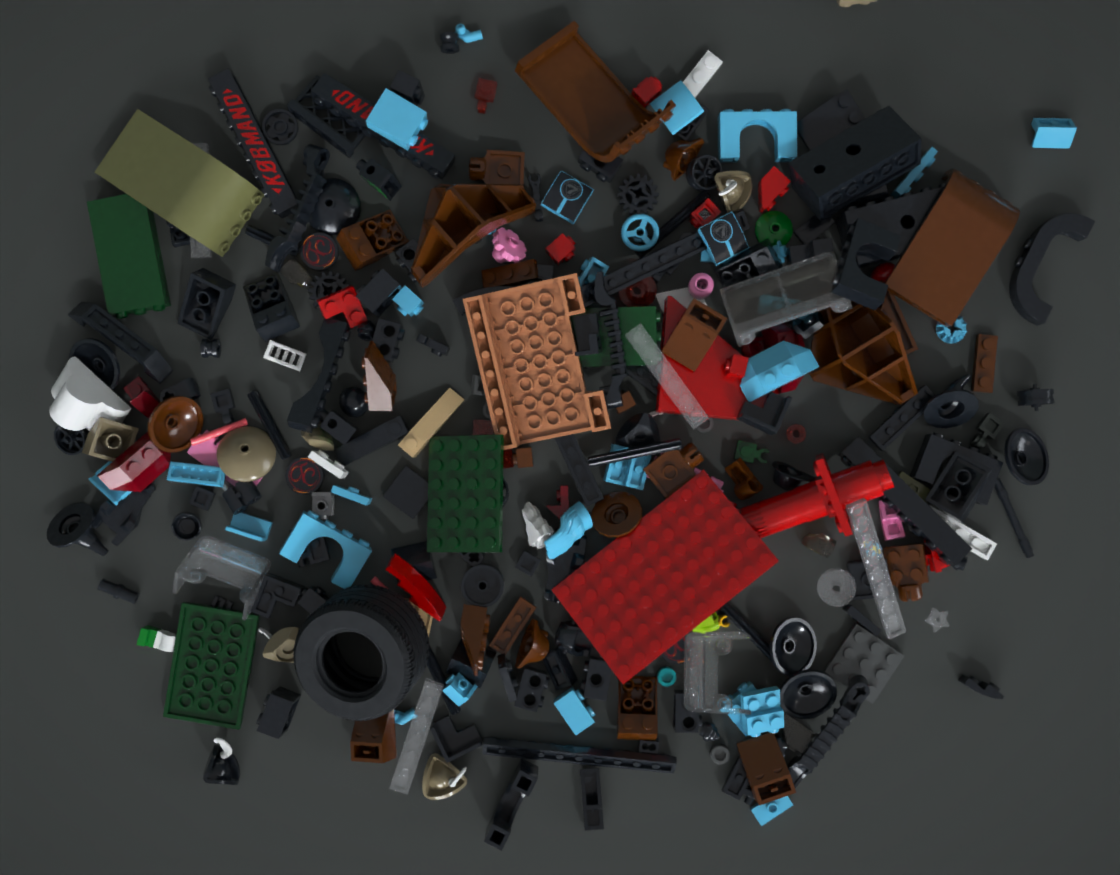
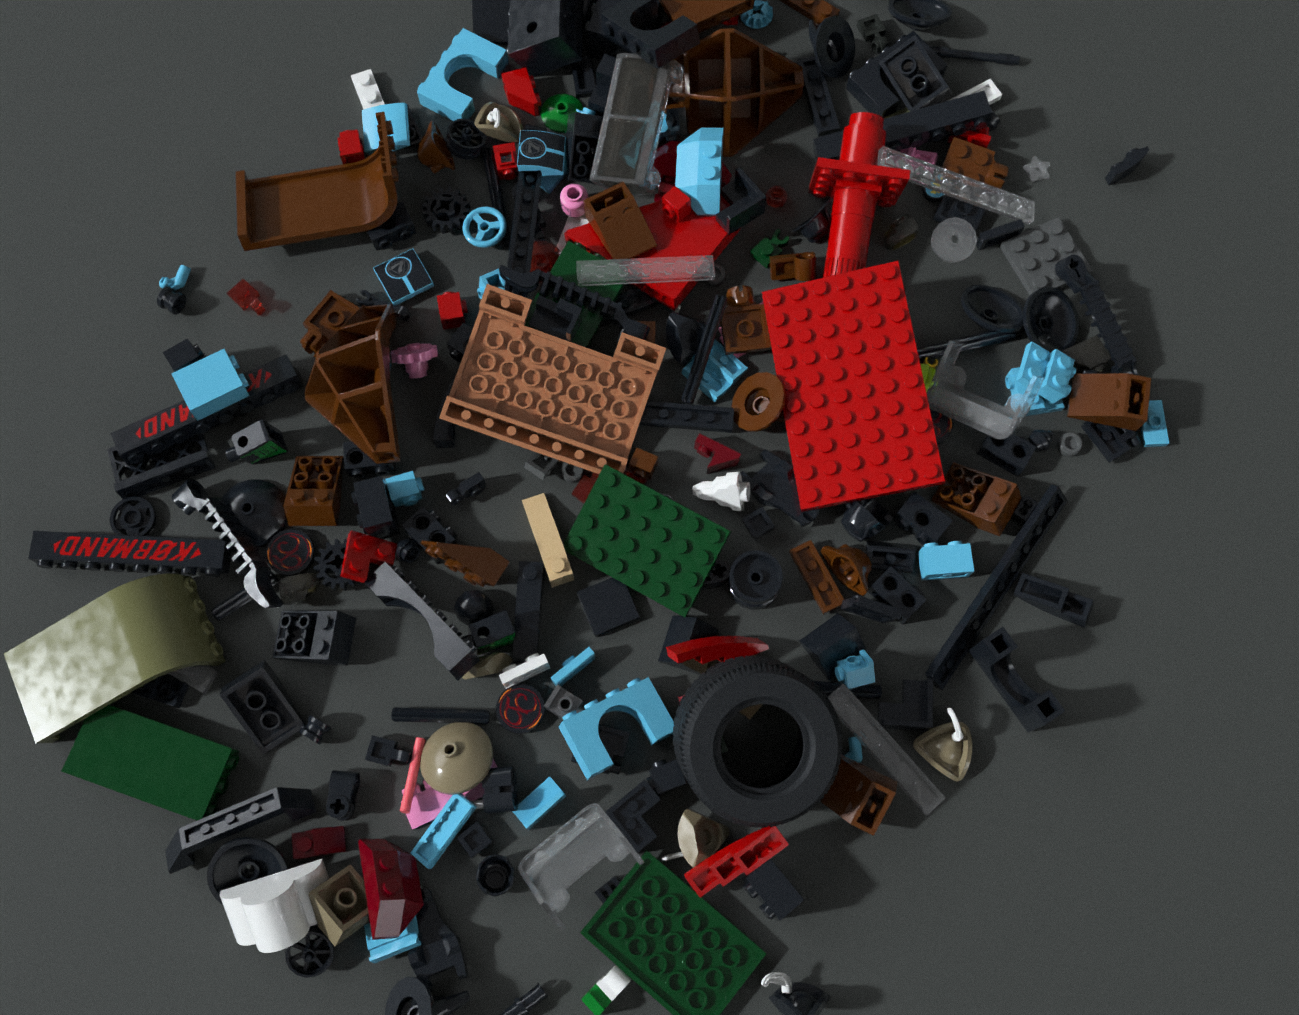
camera: 55 degrees left, 15 degrees down
(184, 424) = (372, 814): reddish brown dish -> none
(267, 355) = (380, 661): white slope -> none
(280, 678) = (739, 857): none -> red slope
(474, 631) = (806, 615): reddish brown slope -> none
(510, 274) = (444, 368): reddish brown plate -> none
(572, 527) = (743, 443): medium azure hair -> none
(666, 676) = (958, 451): teal tile -> none

